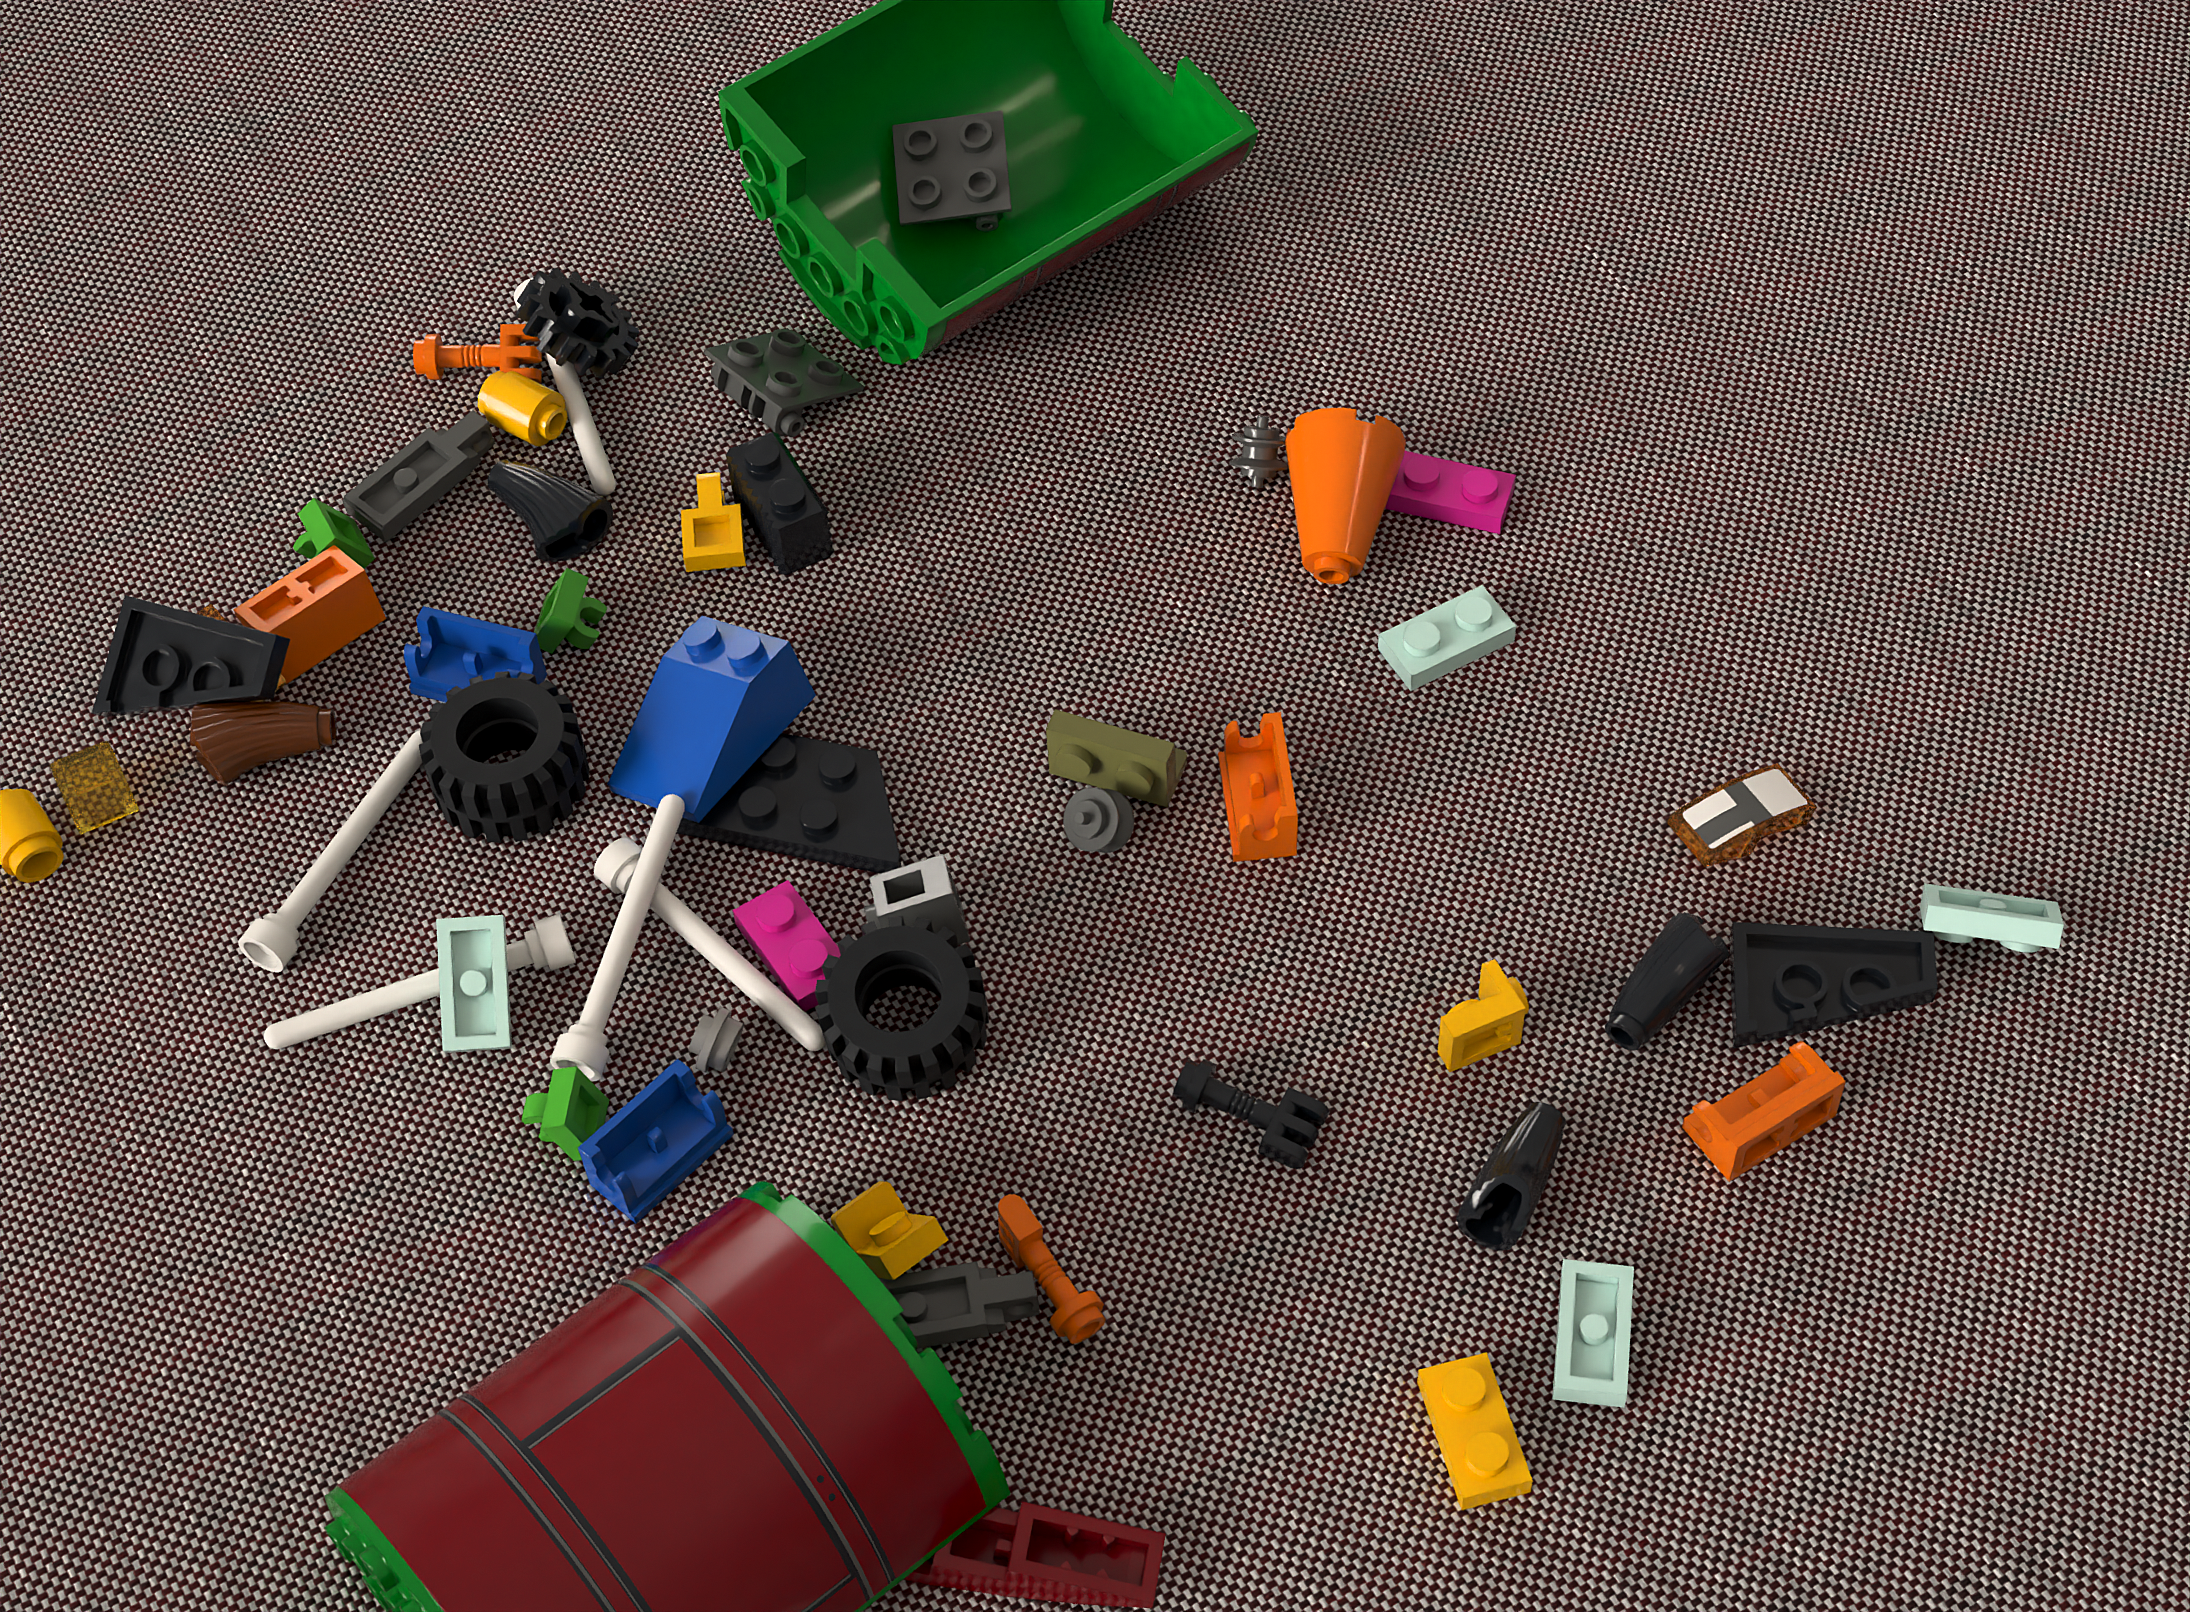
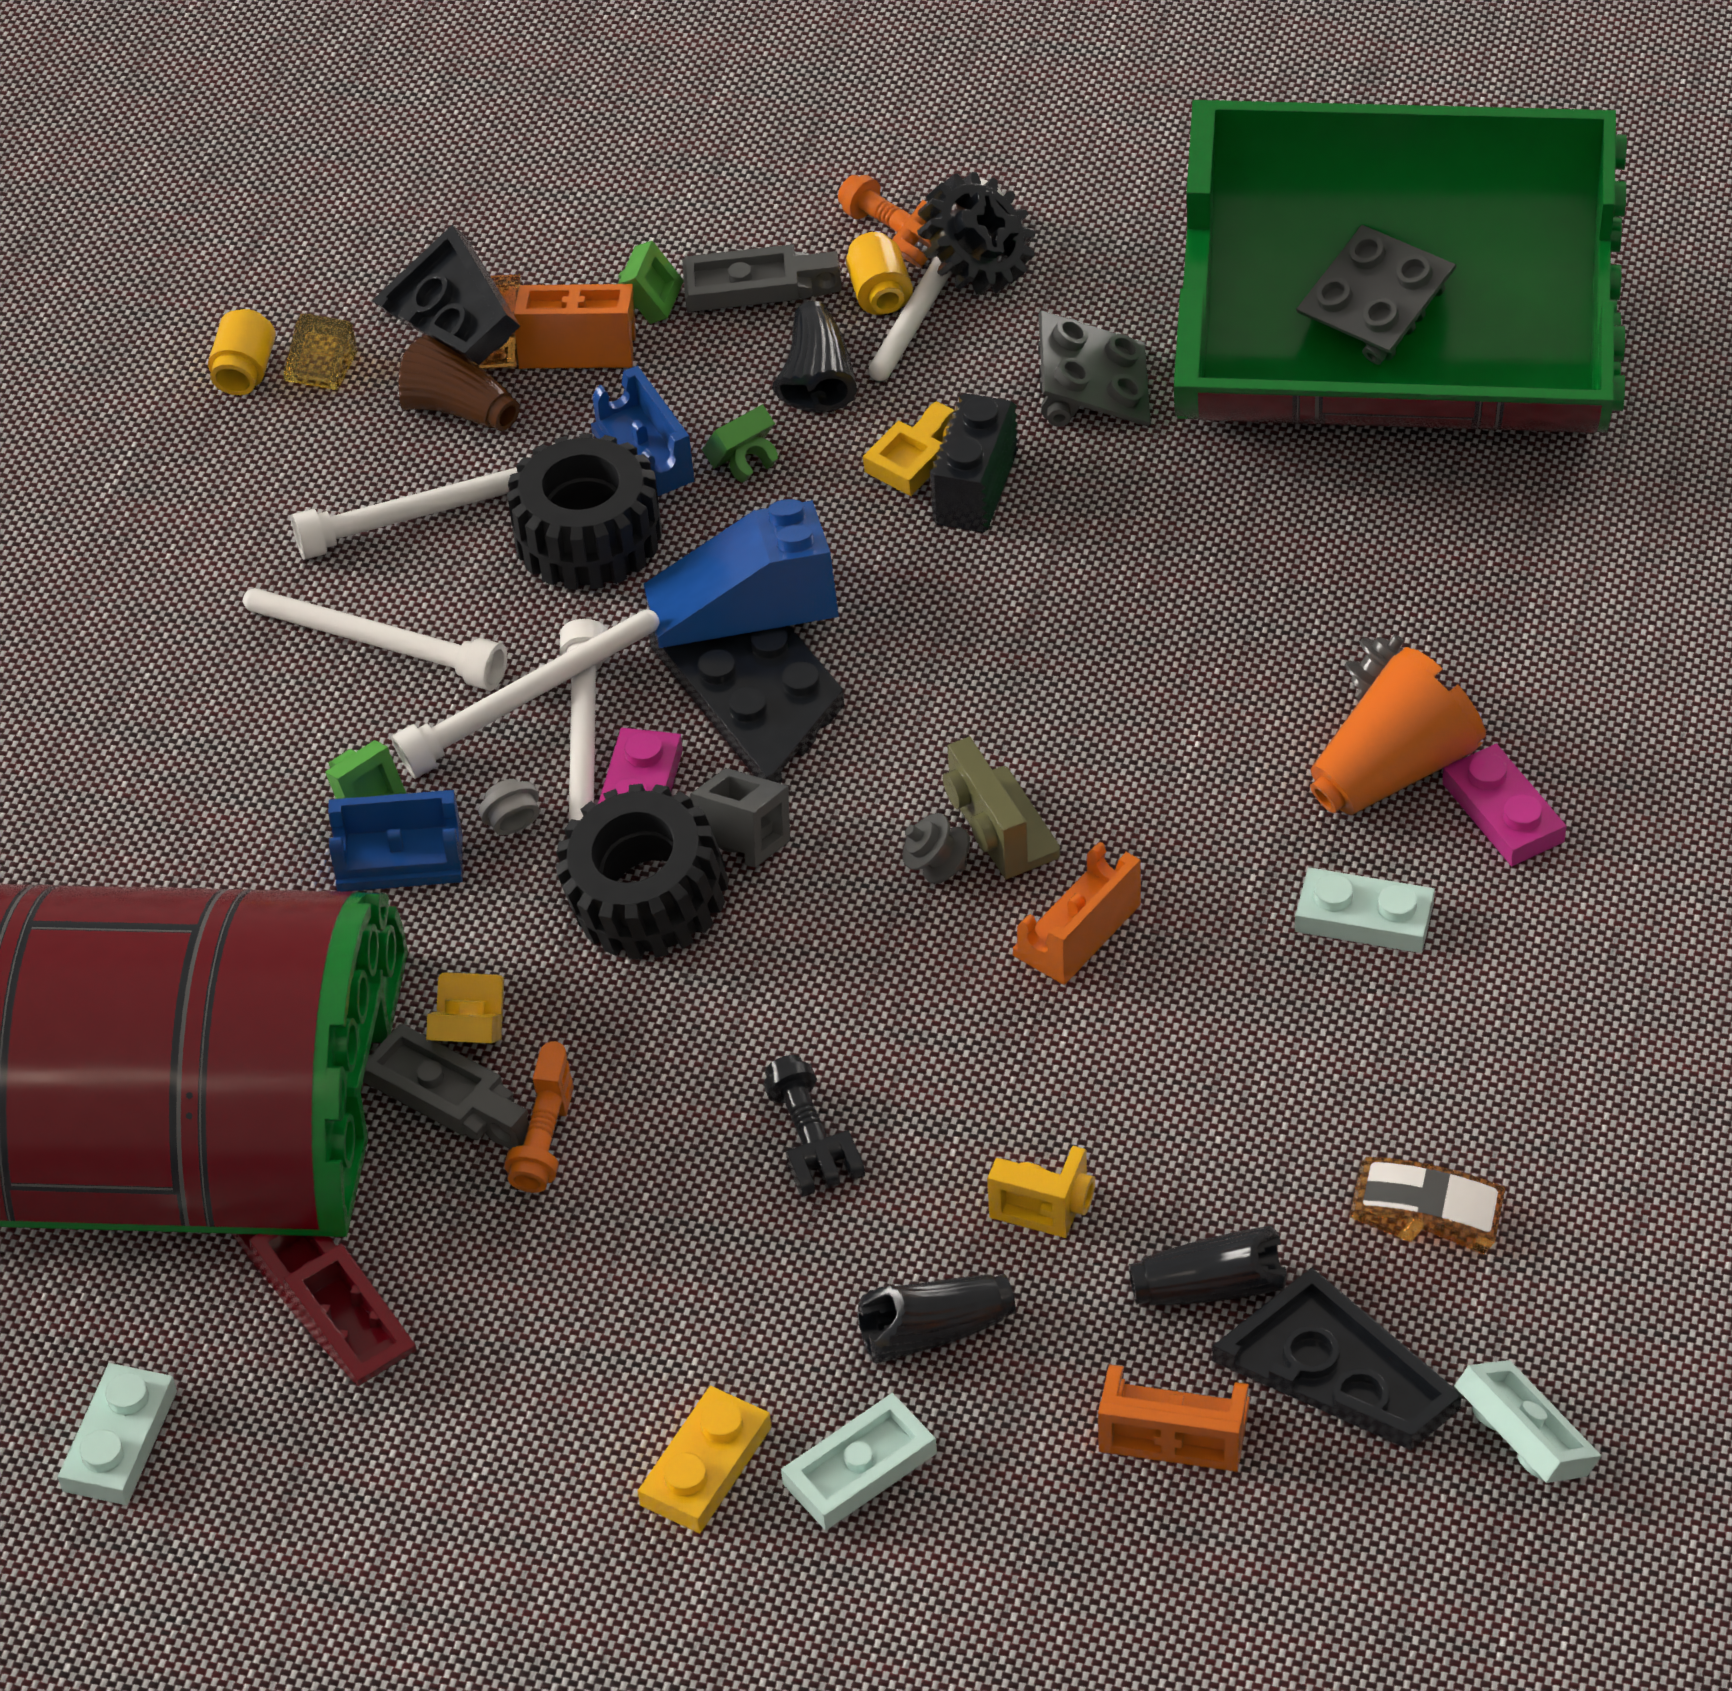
camera: 45 degrees right, 5 degrees down
(474, 983) = (395, 649): light aqua plate -> none

